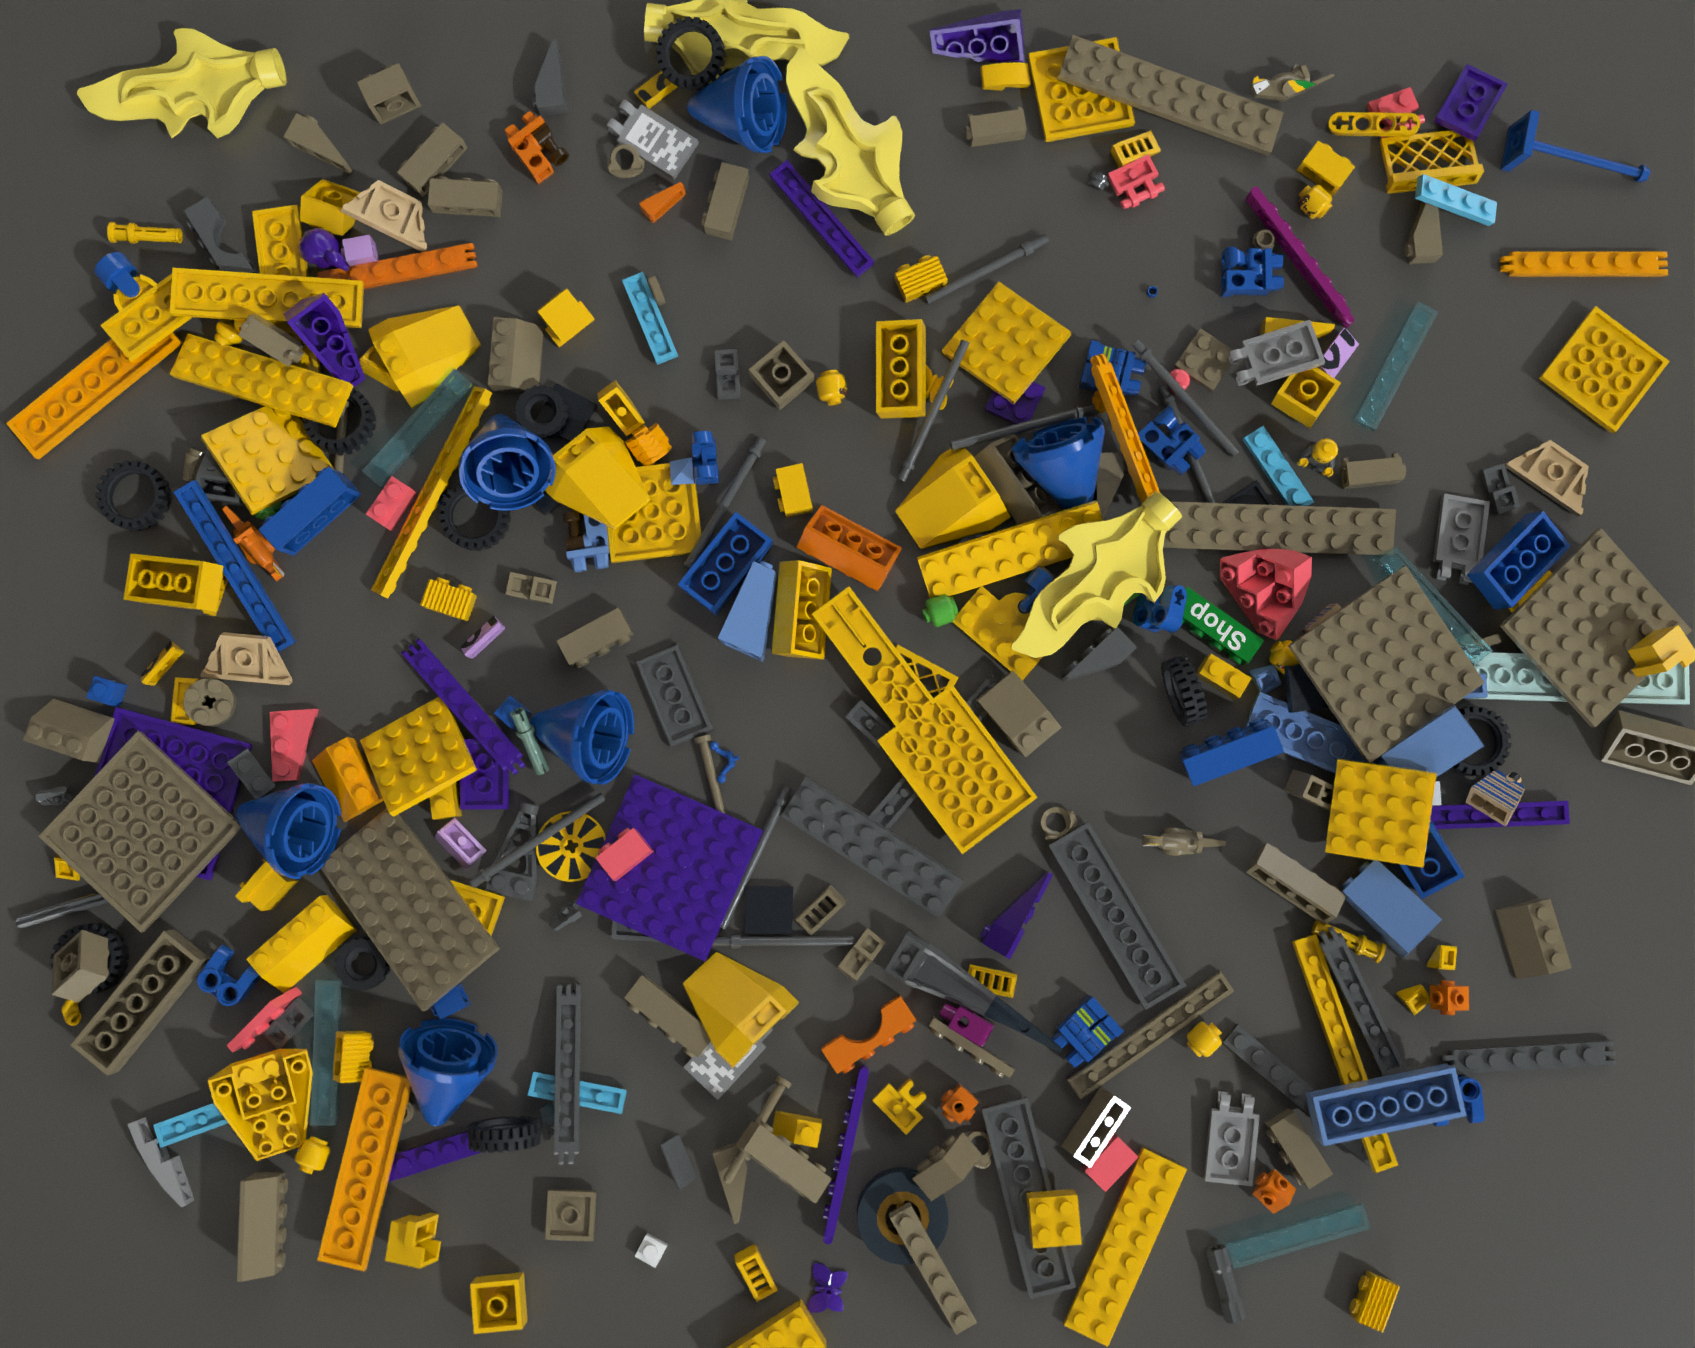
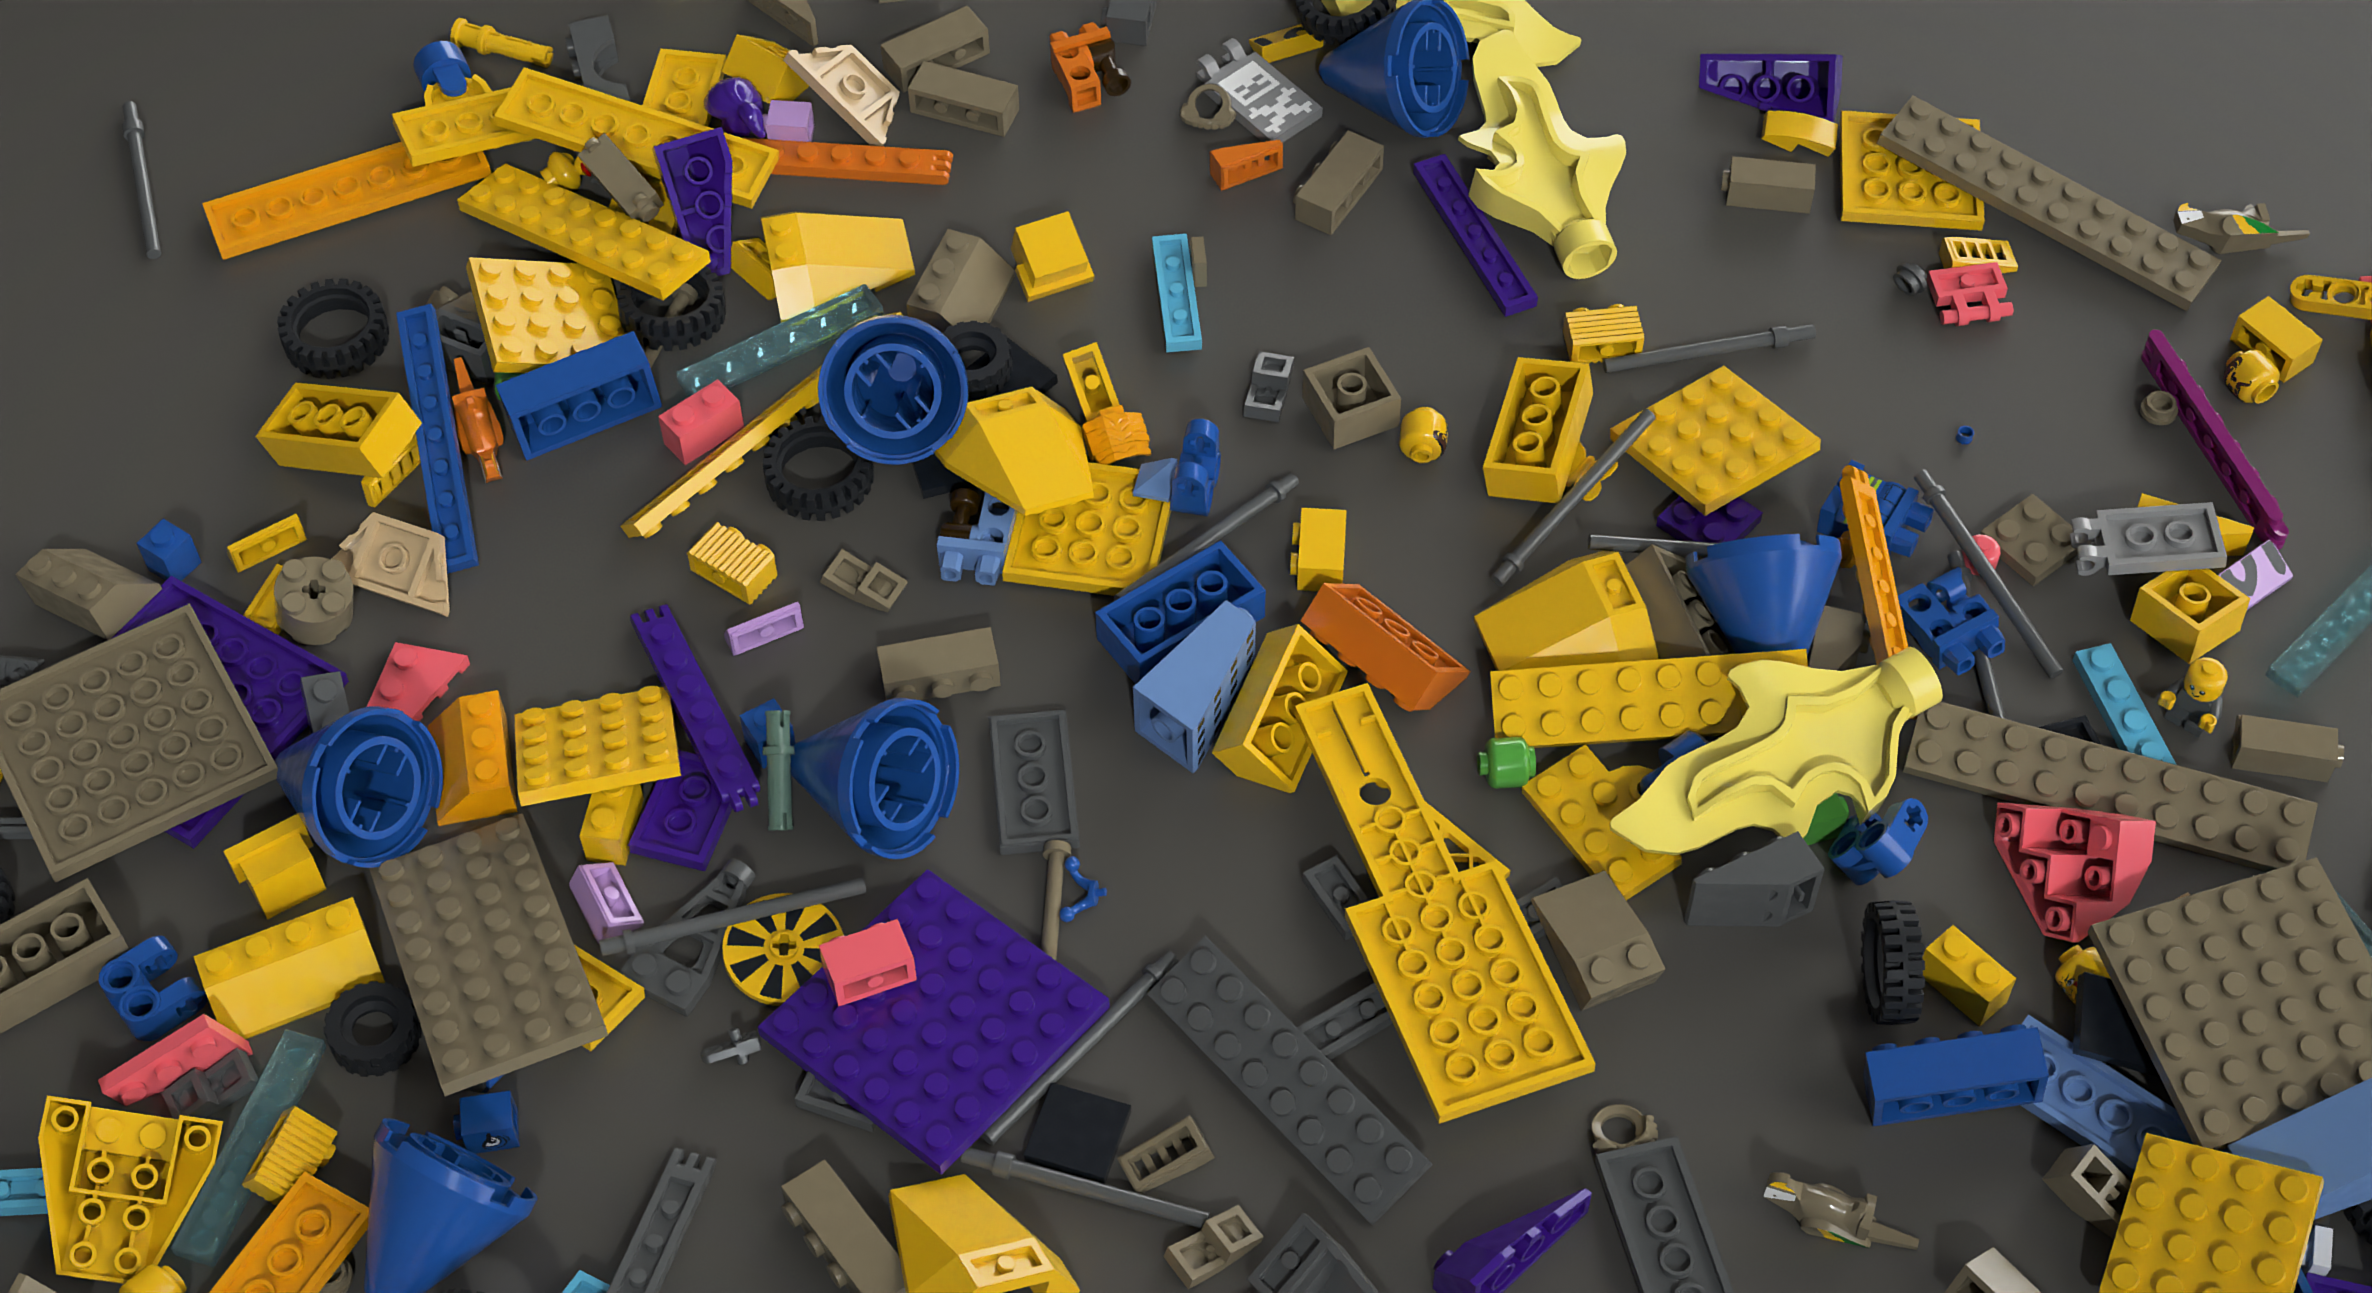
camera: 20 degrees right, 30 degrees down
(1219, 629) = (1973, 901): green brick -> none
(1256, 277) = (2131, 440): blue hips -> none
(1265, 678) = (2044, 1003): medium blue slope -> none

